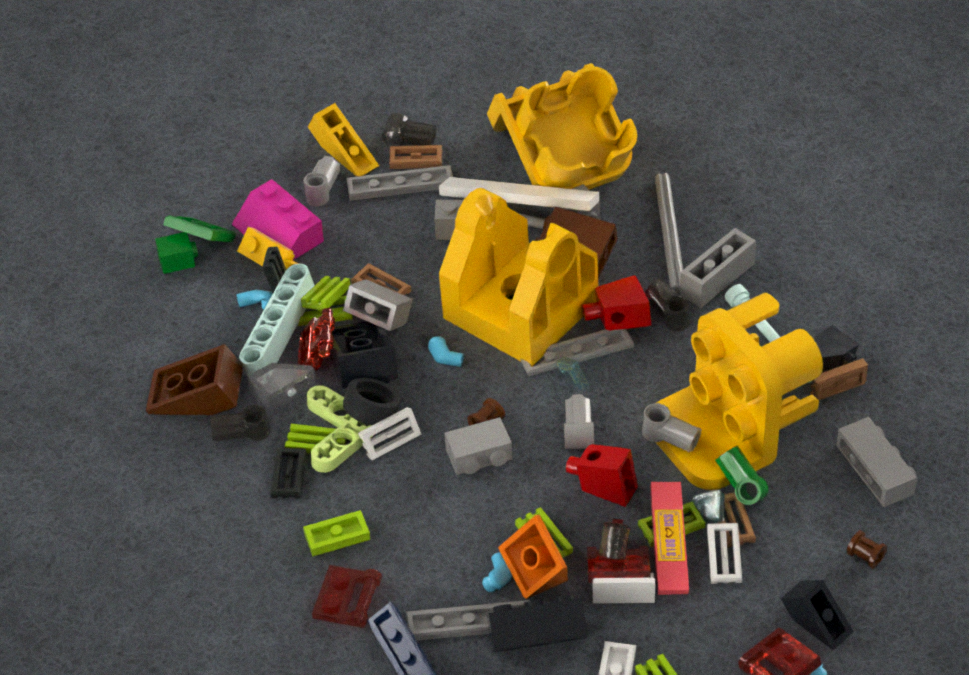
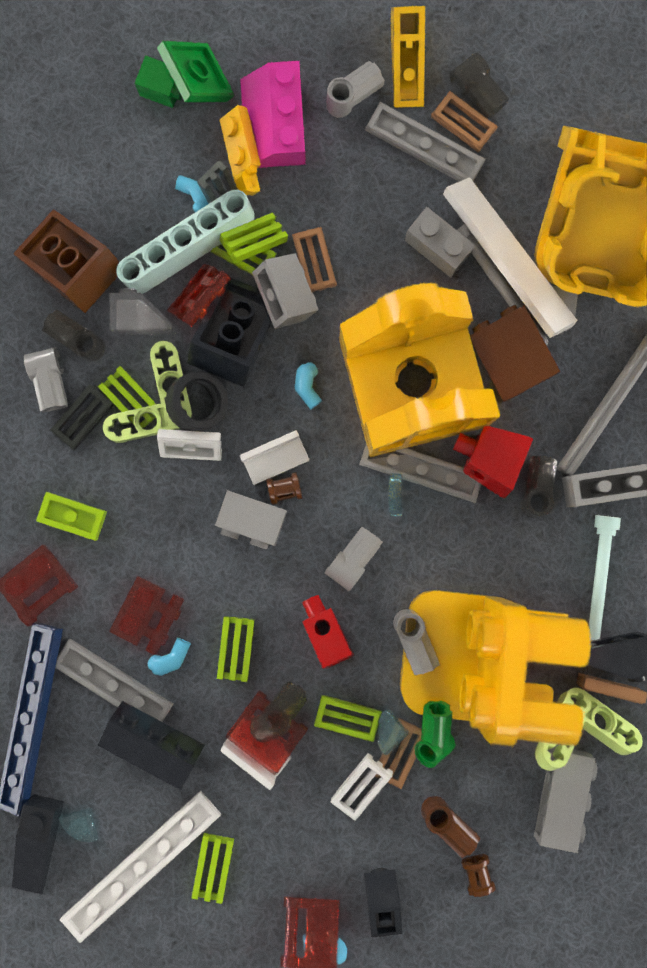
camera: 35 degrees right, 40 degrees up
(236, 459) = (46, 375): none -> light grey piece
(445, 562) = (138, 610): none -> clear red plate
(459, 402) = (275, 457): none -> white panel
(534, 558) = (201, 680): orange slope -> none
(669, 538) = (329, 739): coral tile -> none
(803, 531) = (450, 827): none -> reddish brown piece
(835, 407) = (590, 707): none -> yellowish green beam

